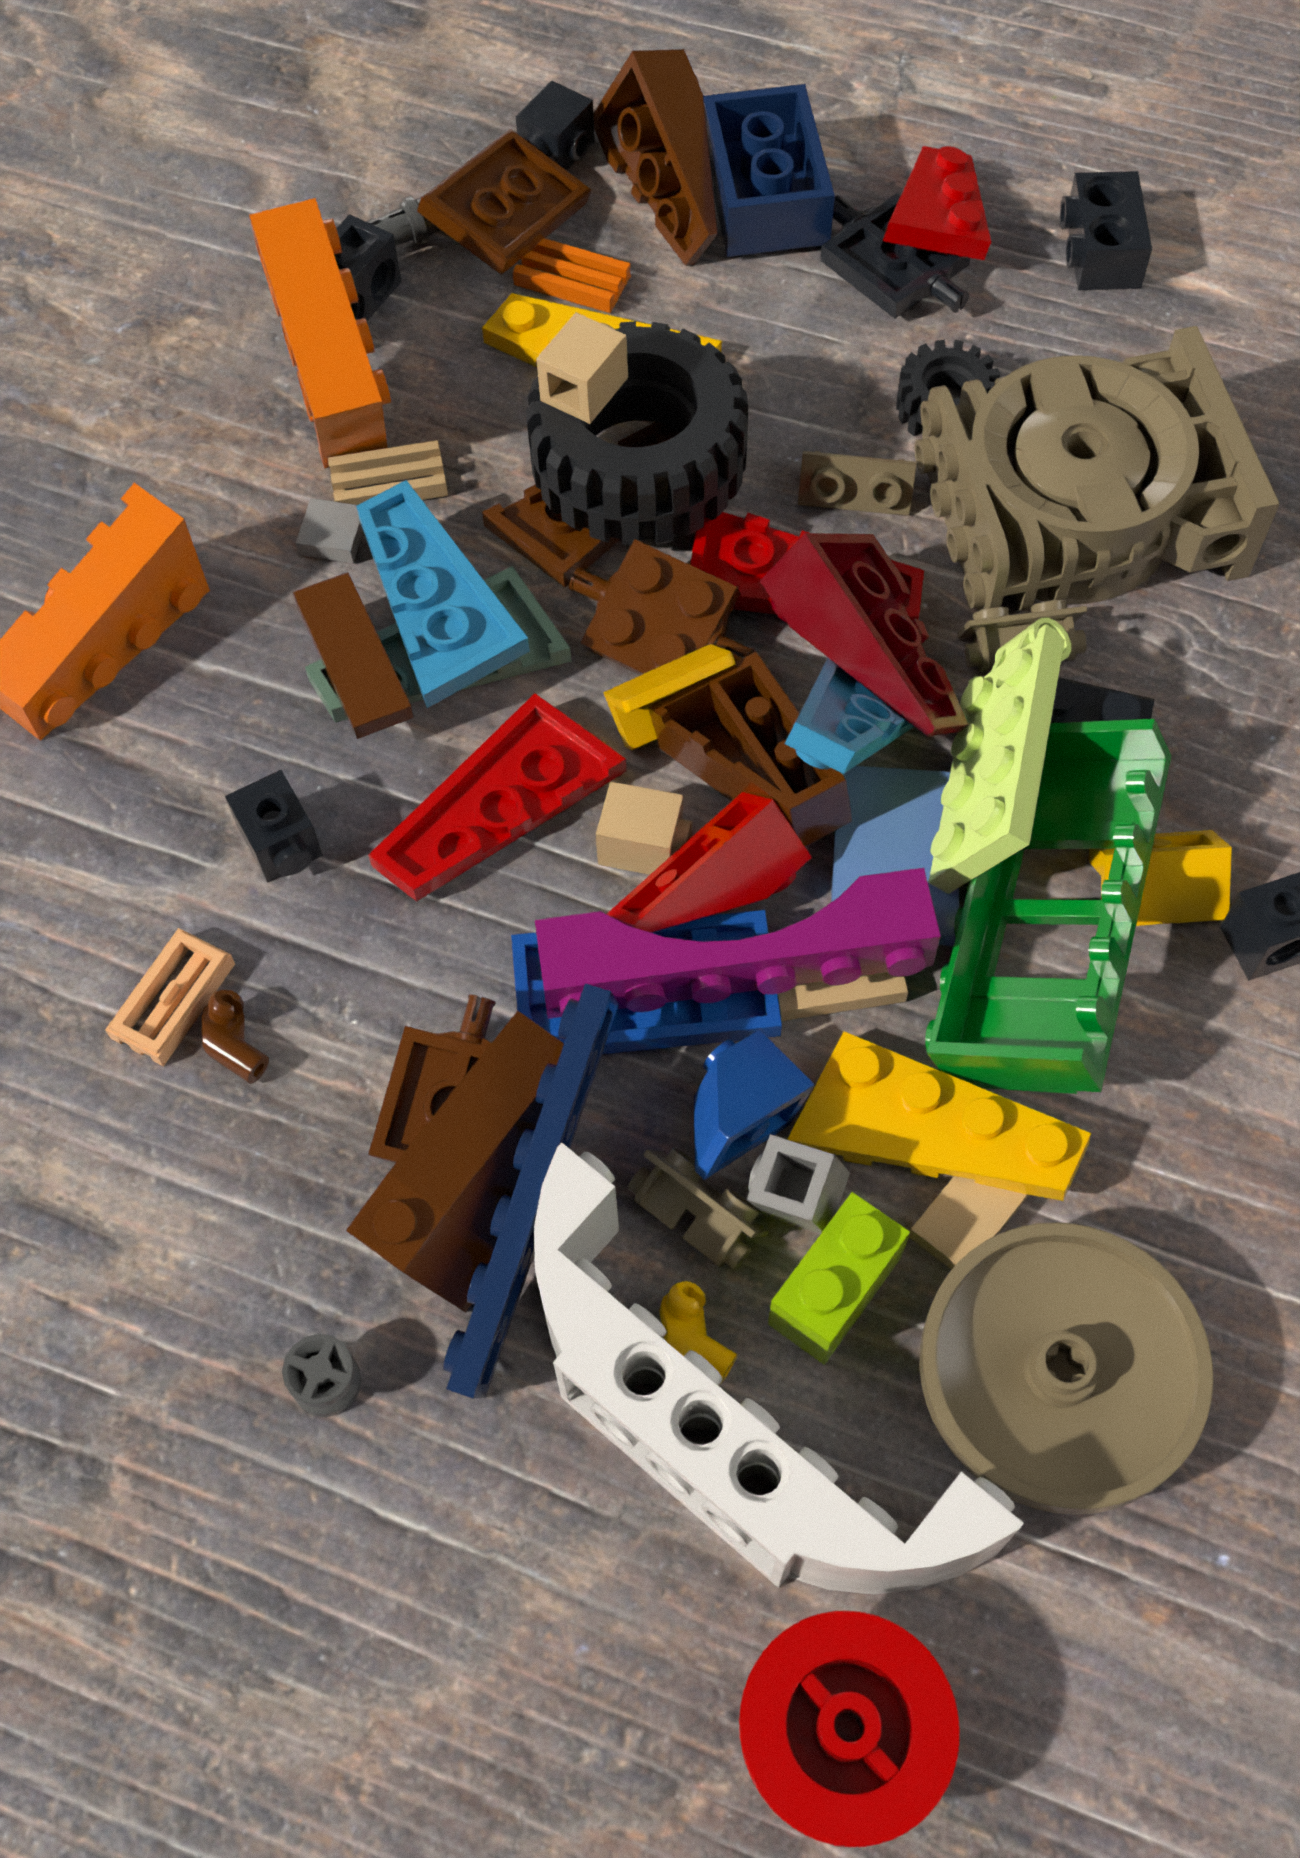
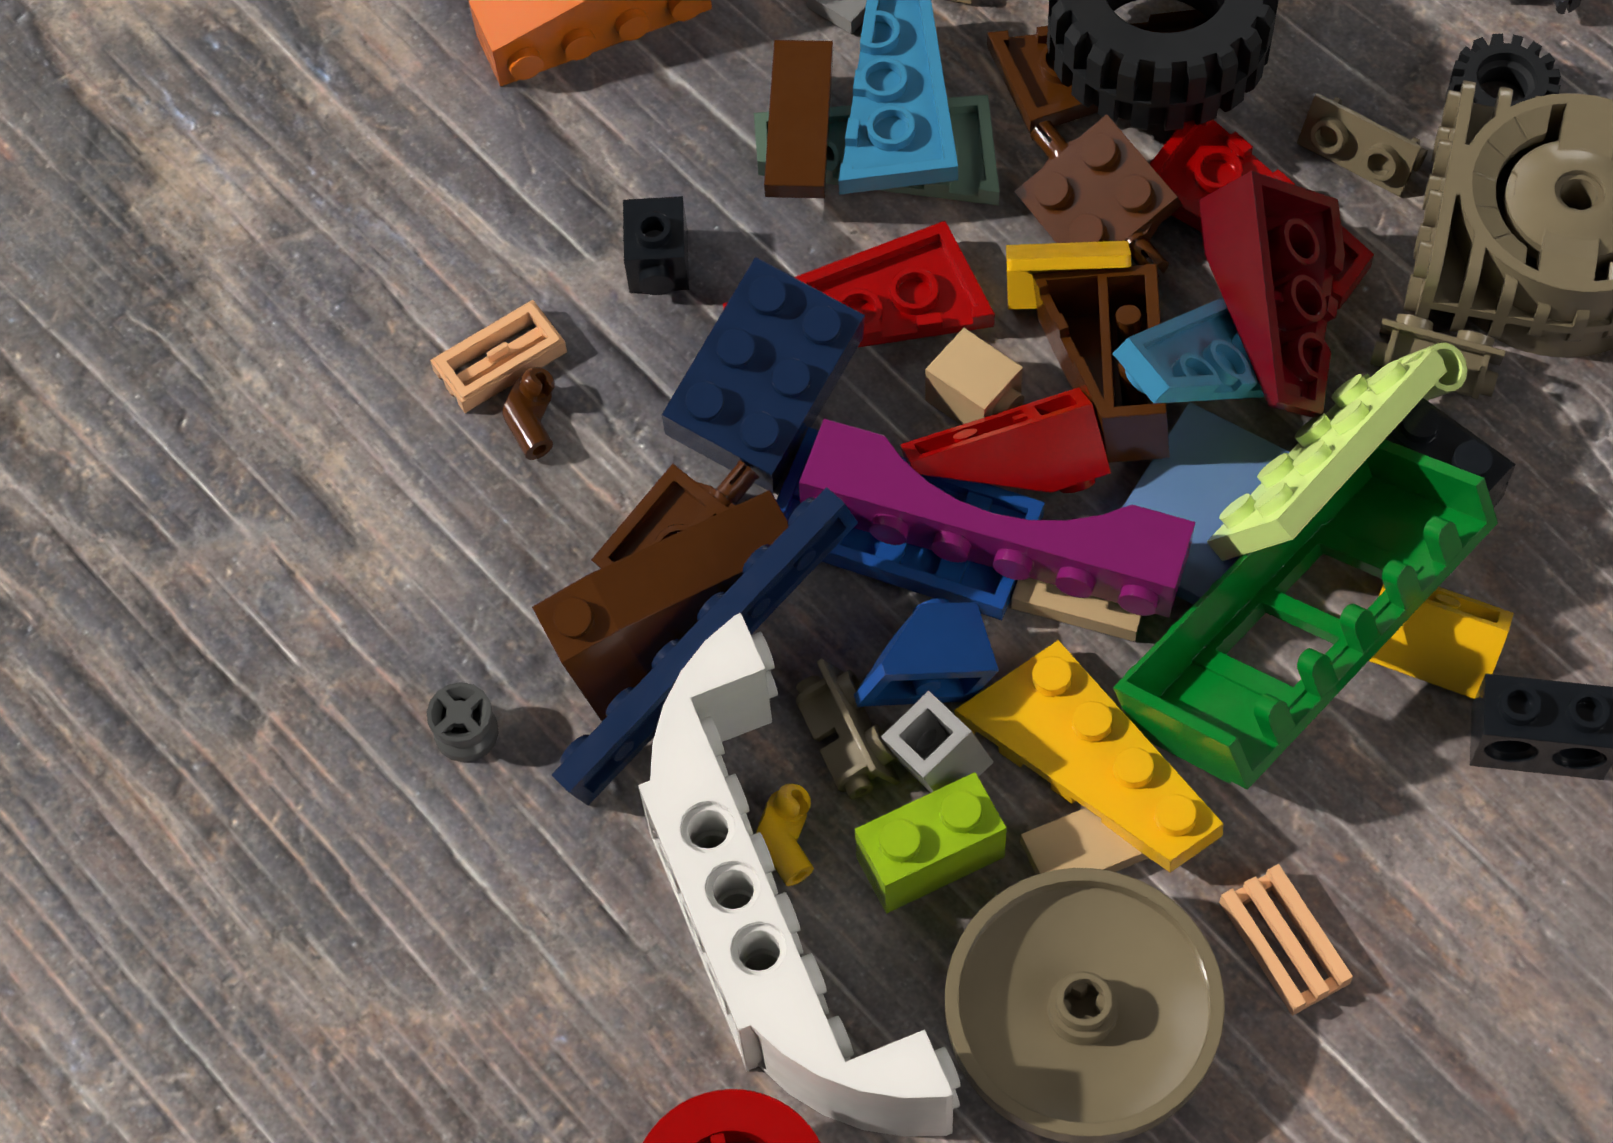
camera: 30 degrees right, 0 degrees up
(448, 902) = (763, 373): none -> dark blue brick
(1207, 1194) = (1256, 891): none -> light nougat tile

